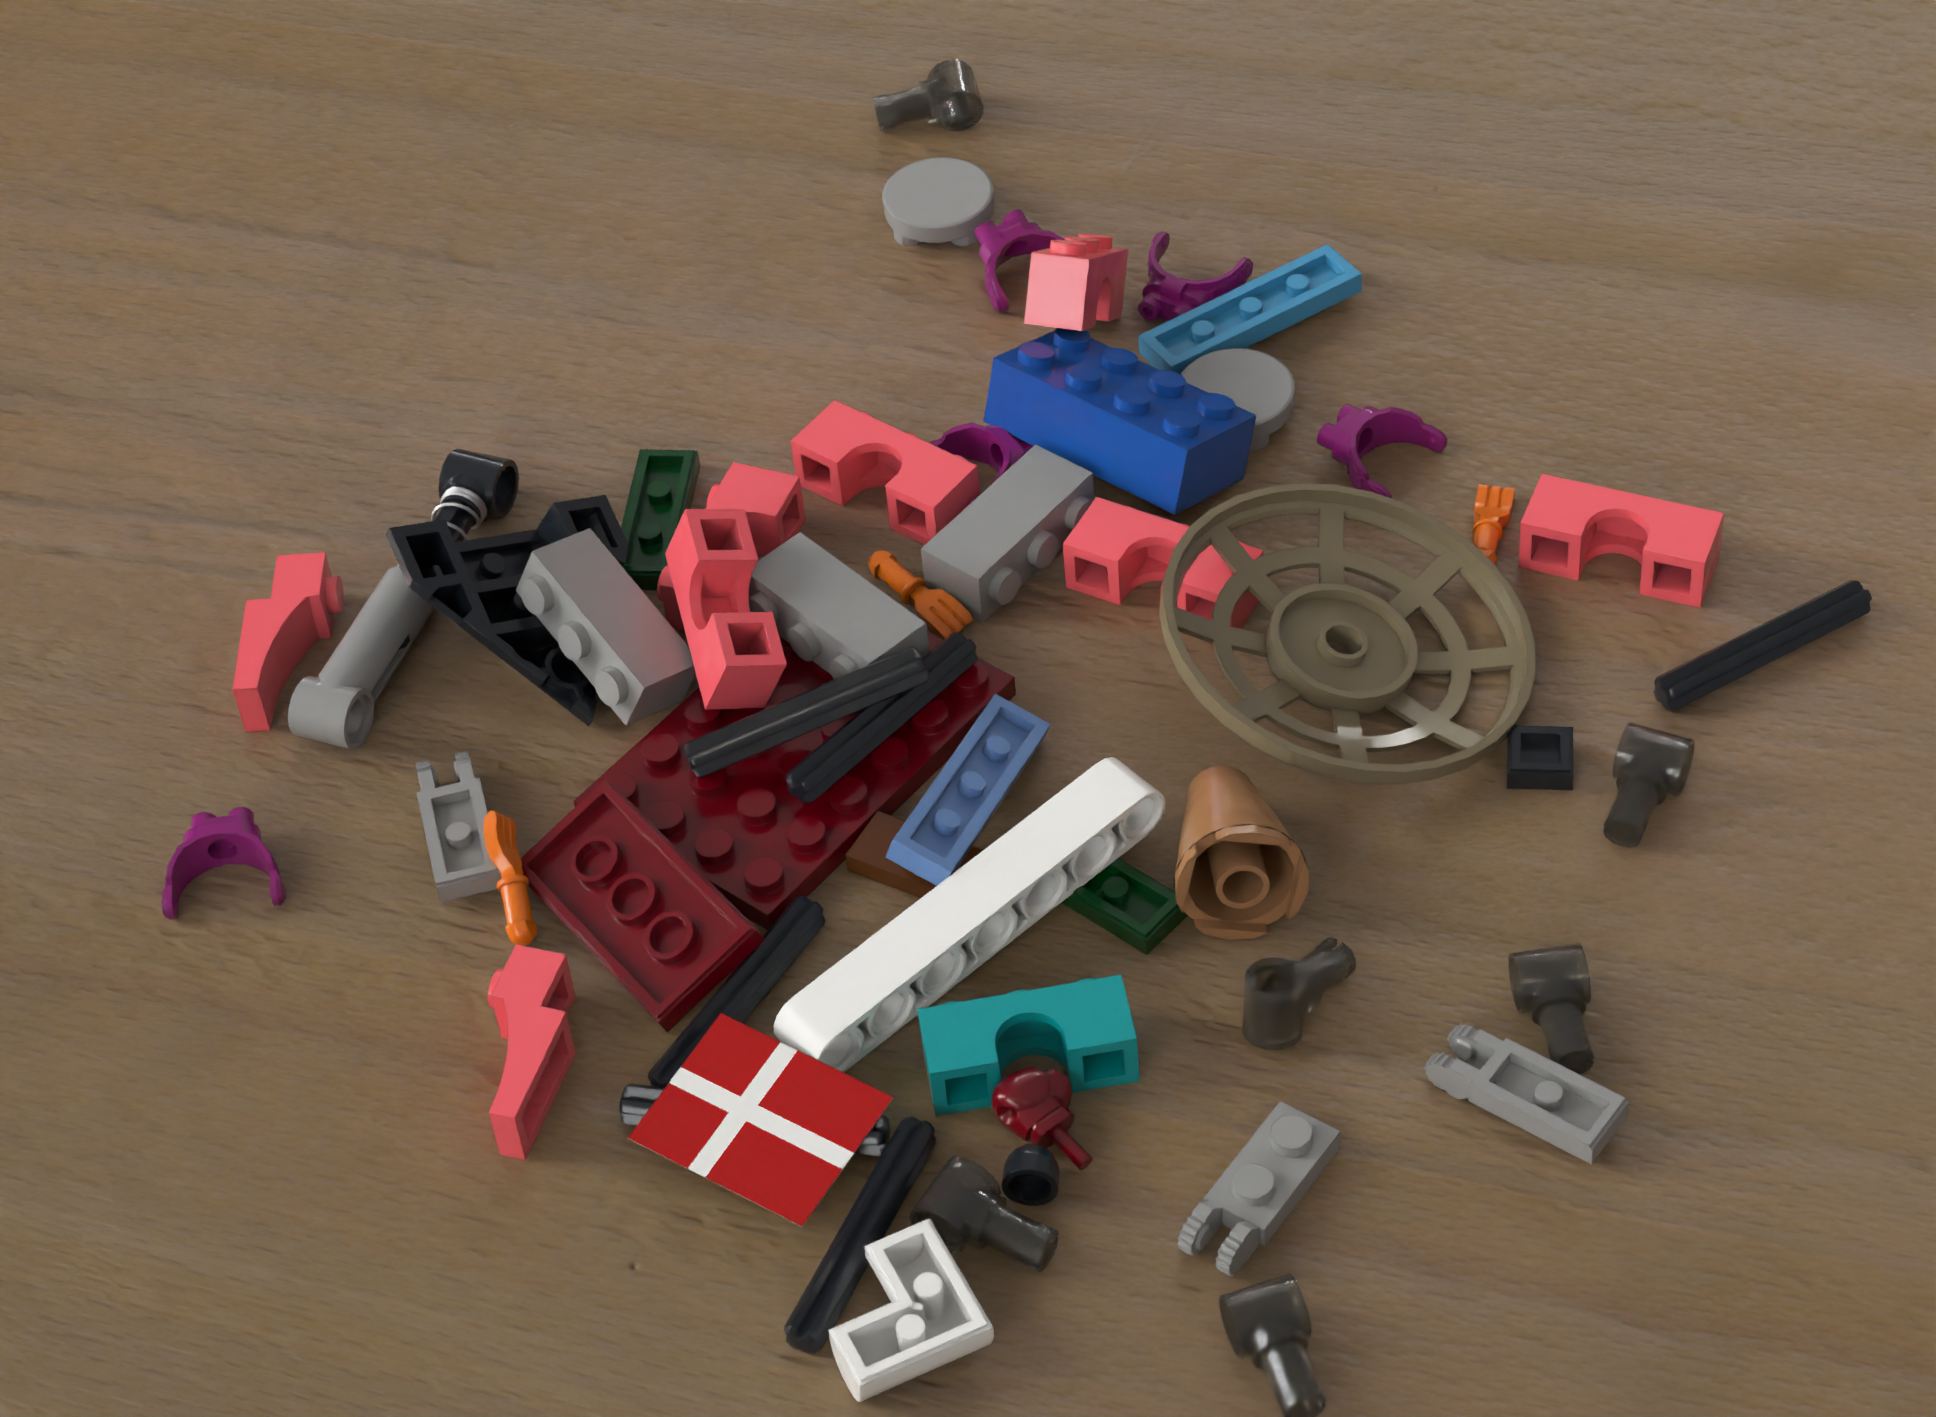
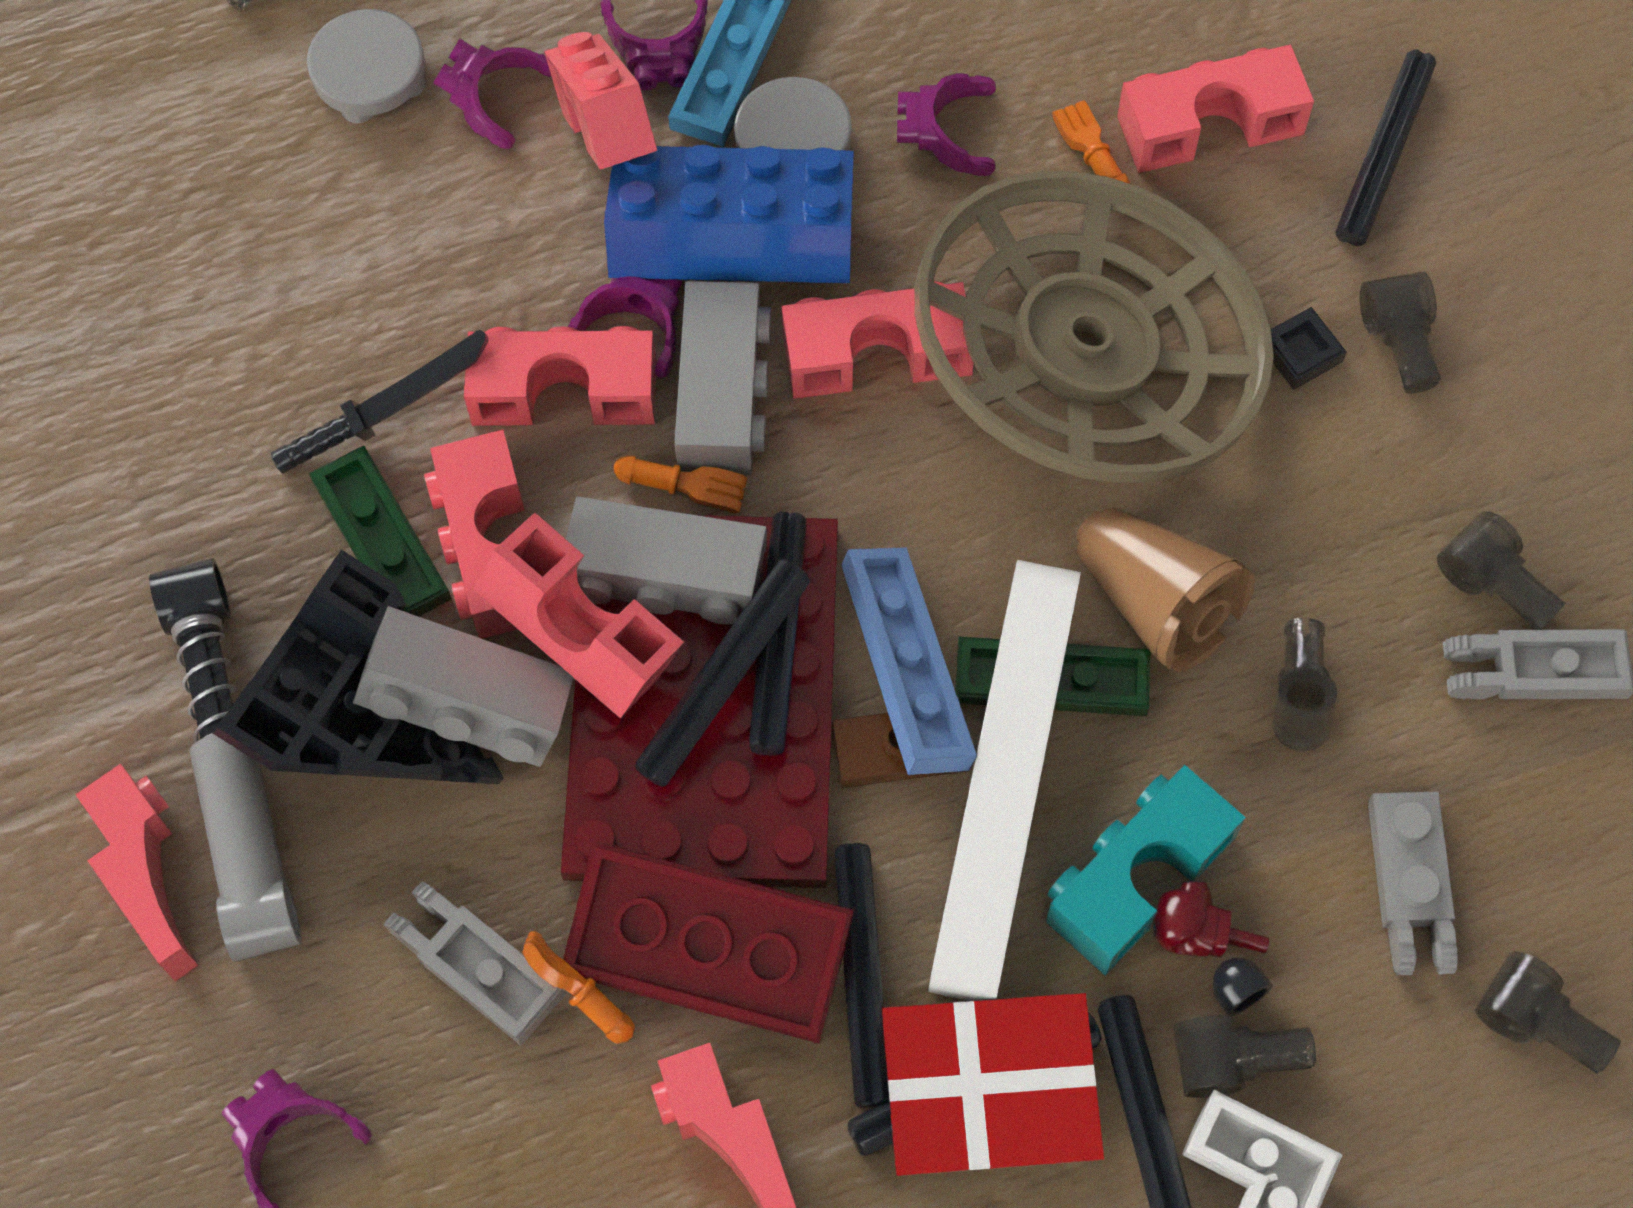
camera: 40 degrees left, 20 degrees up
(708, 425) = (363, 416): none -> black sword

